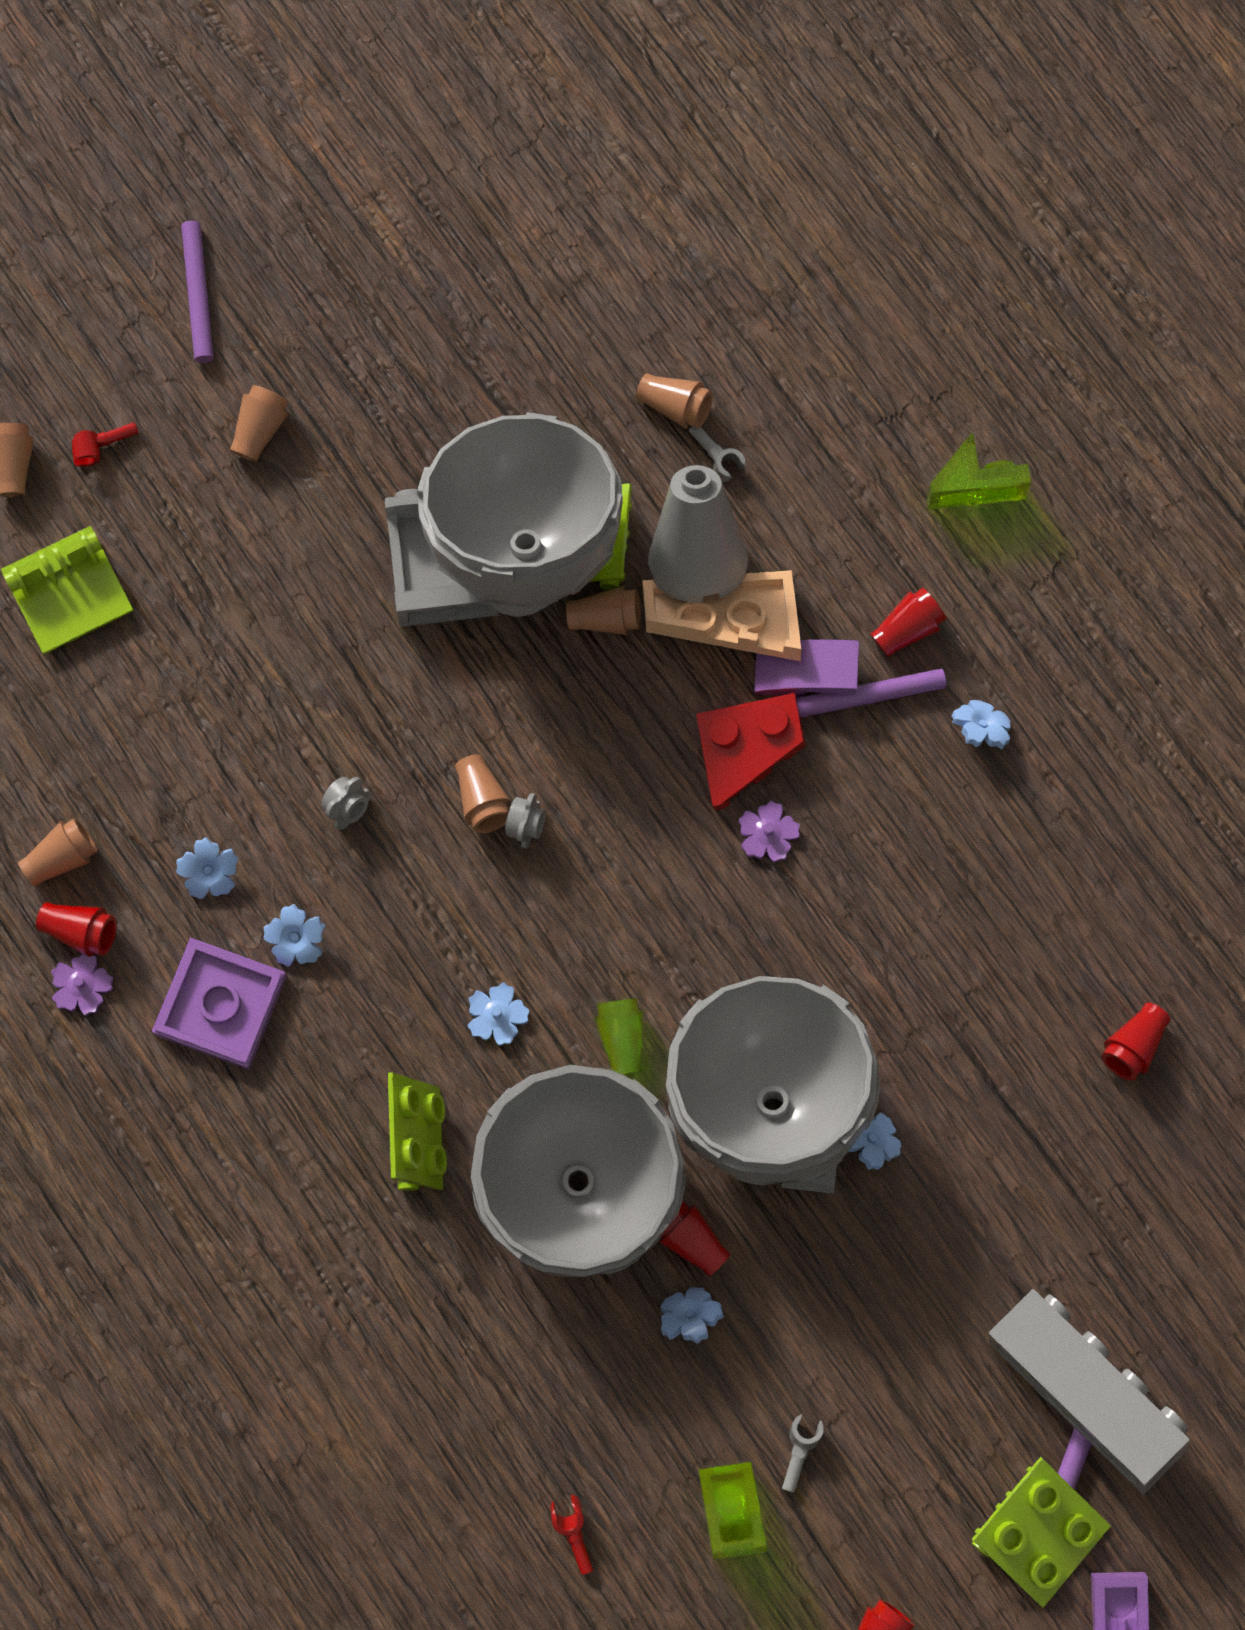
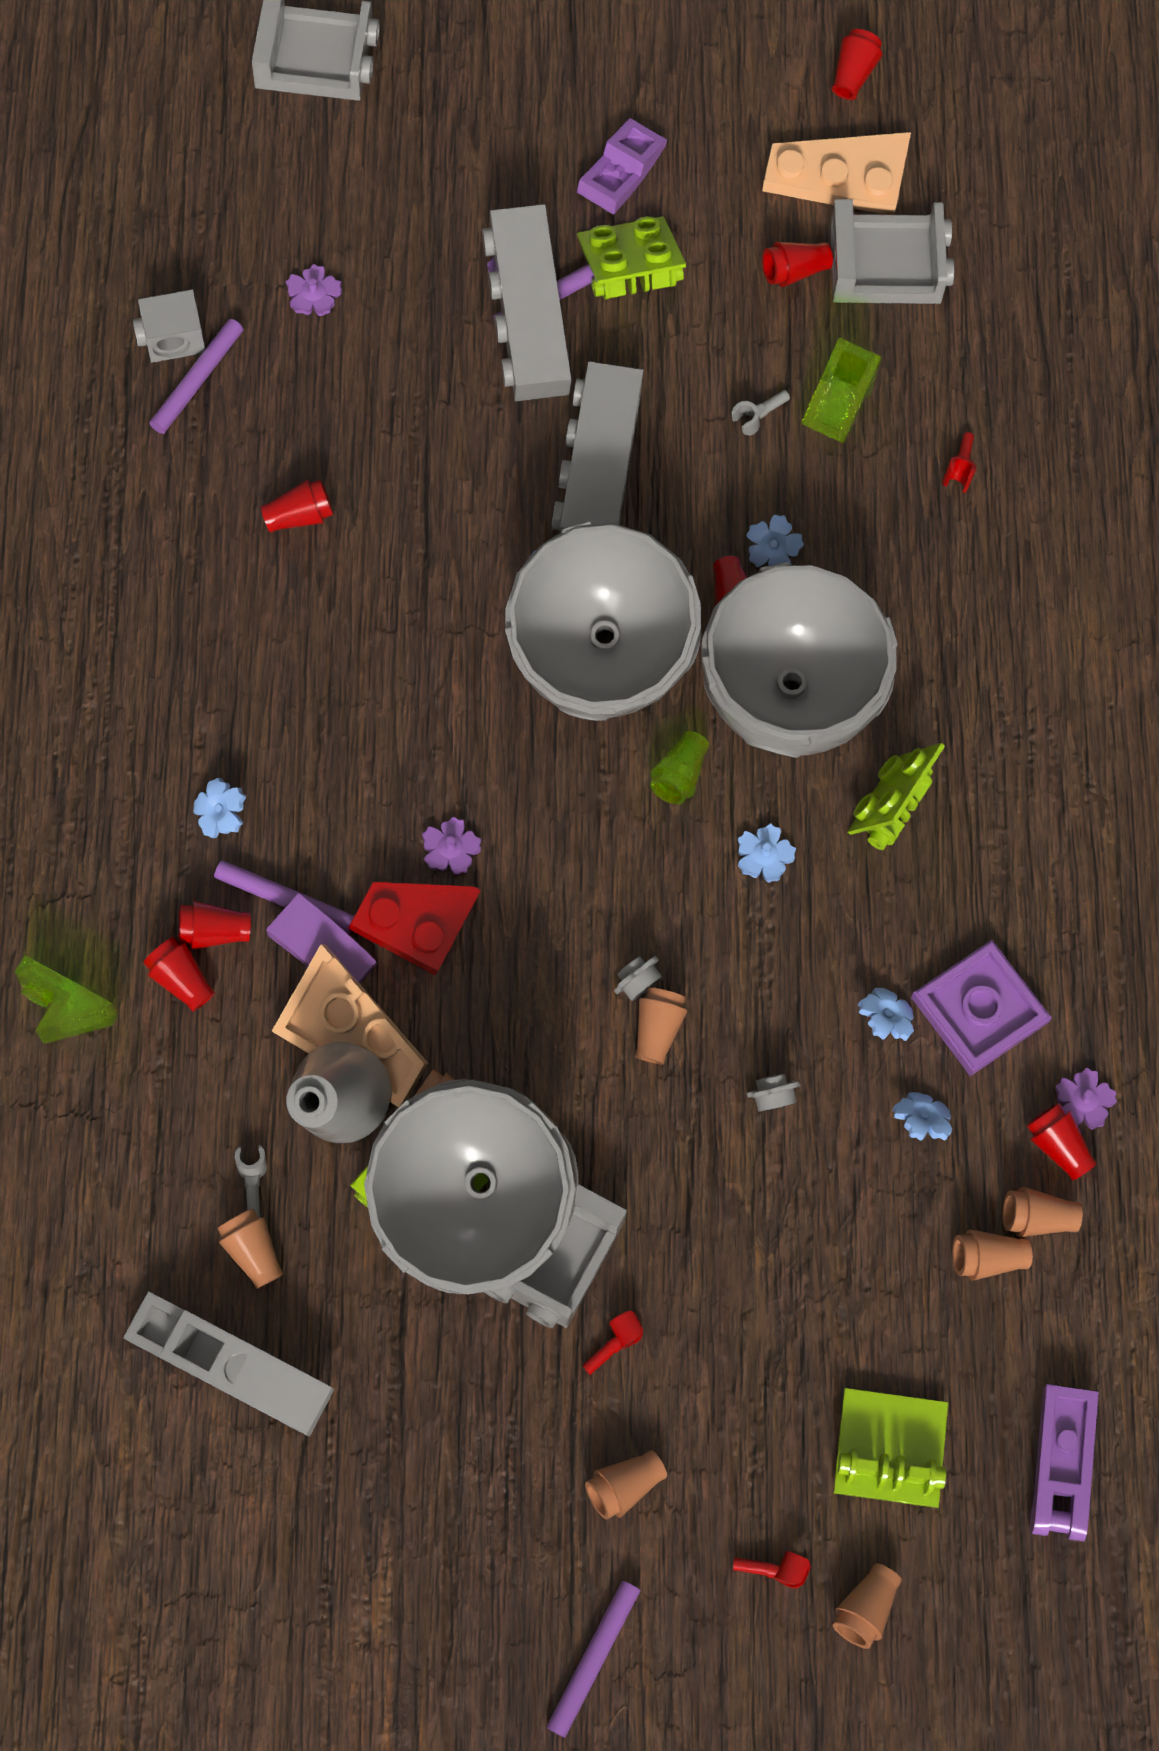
camera: 150 degrees left, 5 degrees down
(80, 790) = (989, 1254): none -> nougat cone
(336, 537) = (627, 1333): none -> red hand
(623, 294) = (229, 1363): none -> light grey slope
(902, 566) = (178, 973): none -> red cone
(907, 1283) = (600, 446): none -> light grey brick

